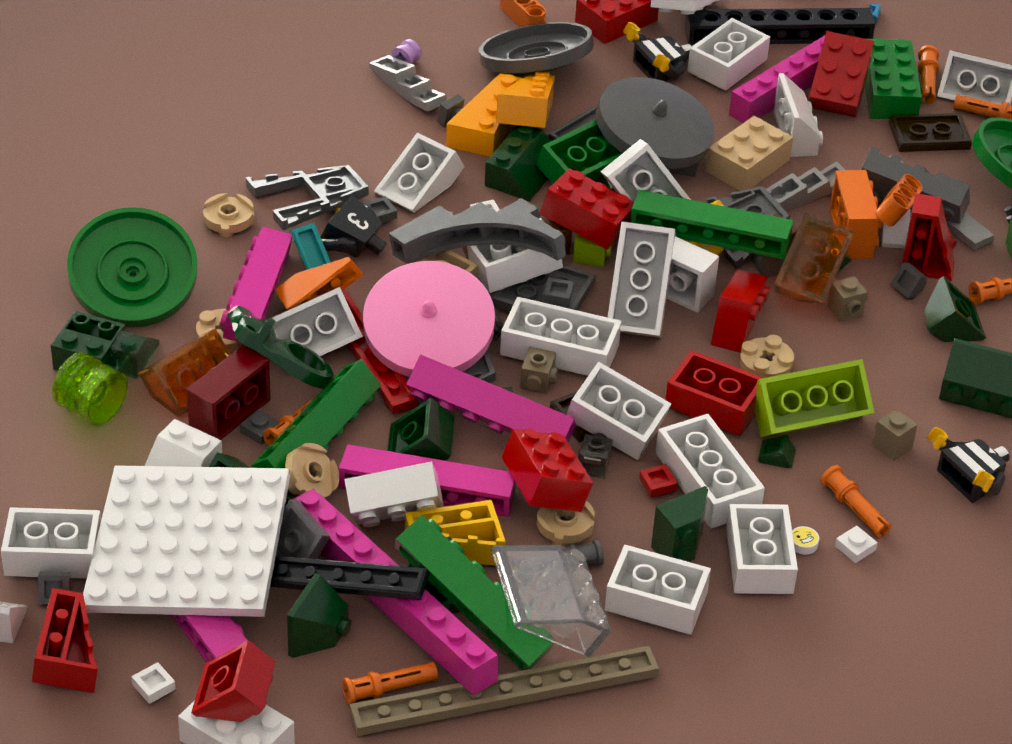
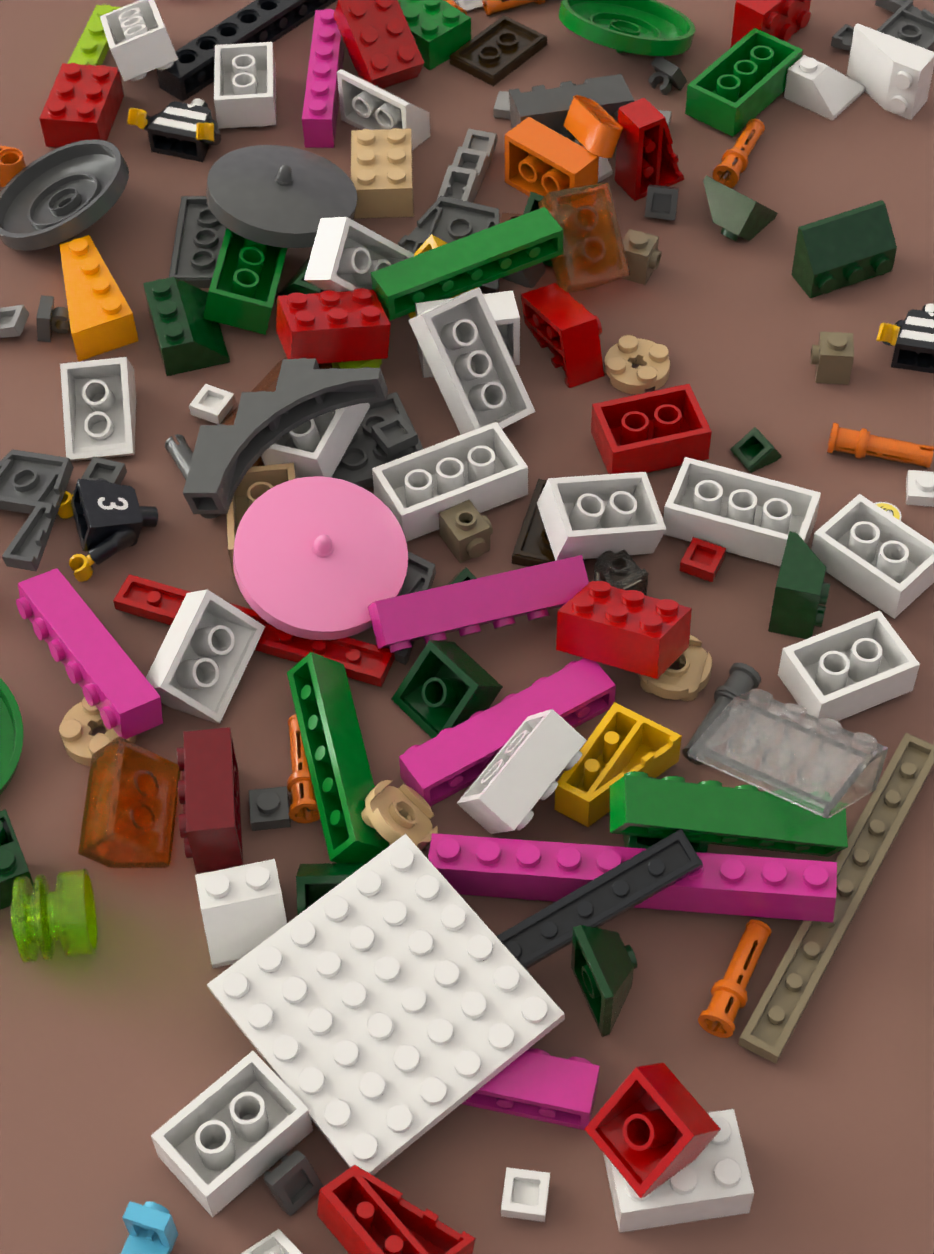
camera: 40 degrees left, 10 degrees up
(132, 353) = (38, 835): clear green slope -> none
(287, 354) = (214, 706): dark green animal -> none
(300, 533) = (489, 891): flat silver plate -> none
(310, 246) = (92, 569): teal tile -> none
(317, 281) = (154, 608): orange slope -> none
(527, 101) = (134, 253): light orange wedge -> none
(812, 398) = (747, 376): lime slope -> none

